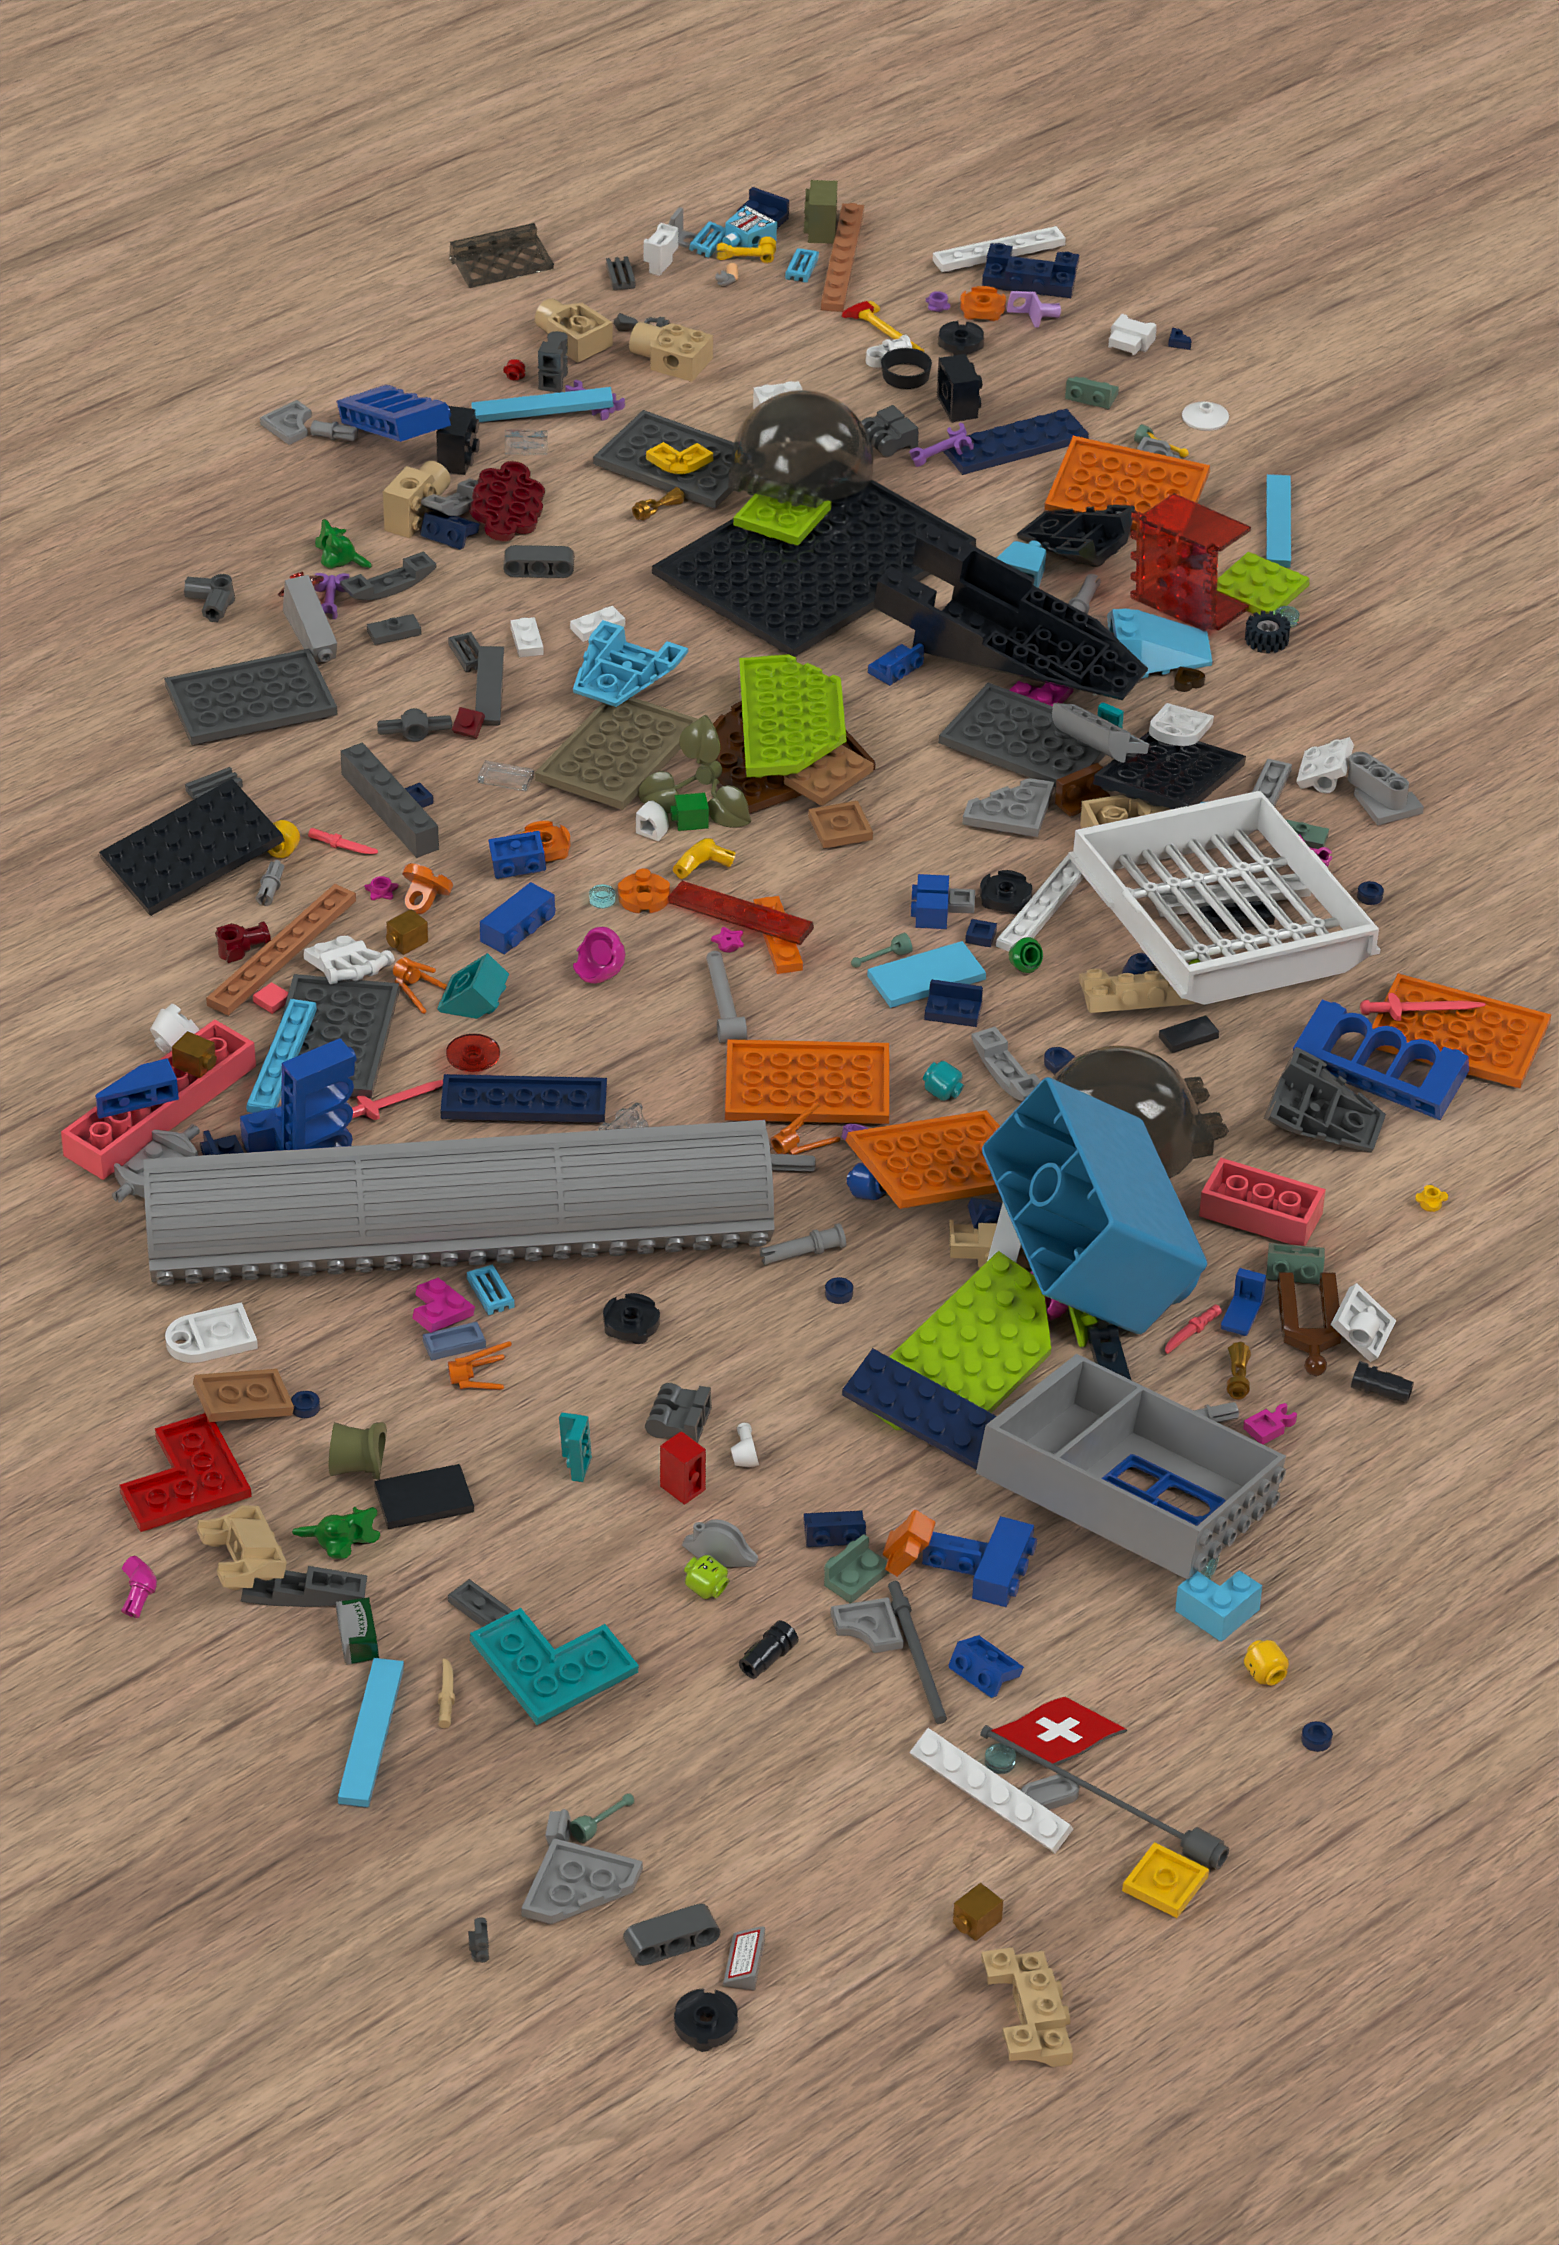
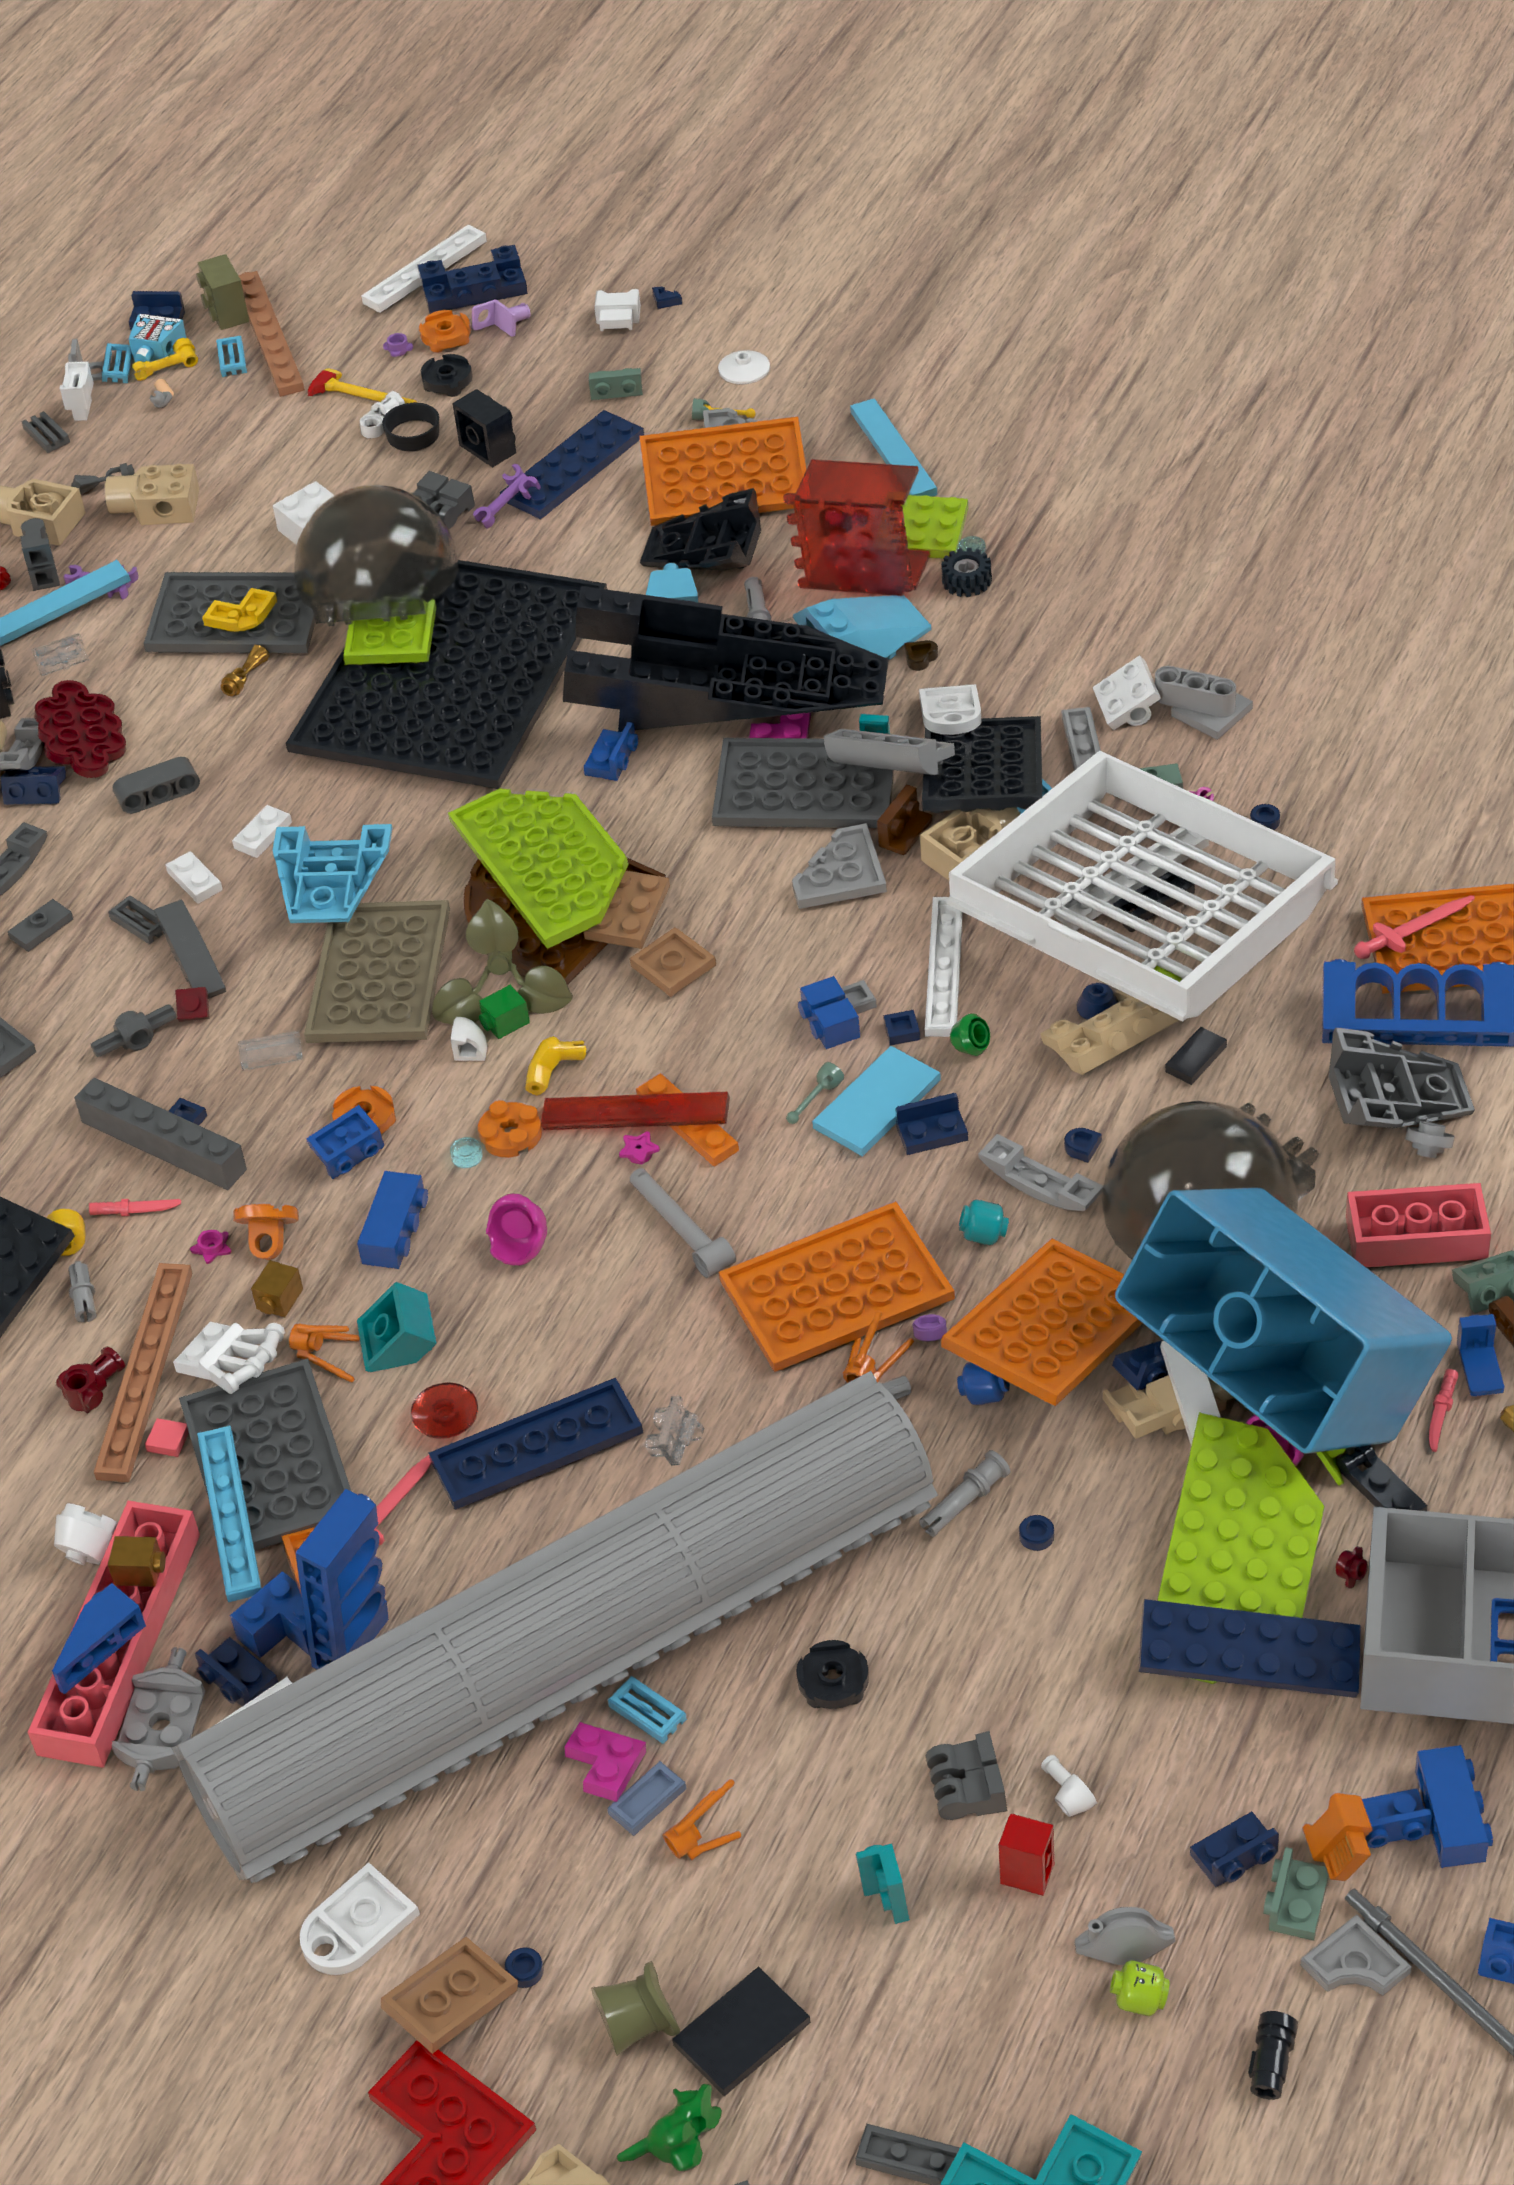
camera: 20 degrees left, 5 degrees up
(995, 898) = (889, 981): black plate -> none
(1319, 1152) = (1429, 1138): none -> light grey plate

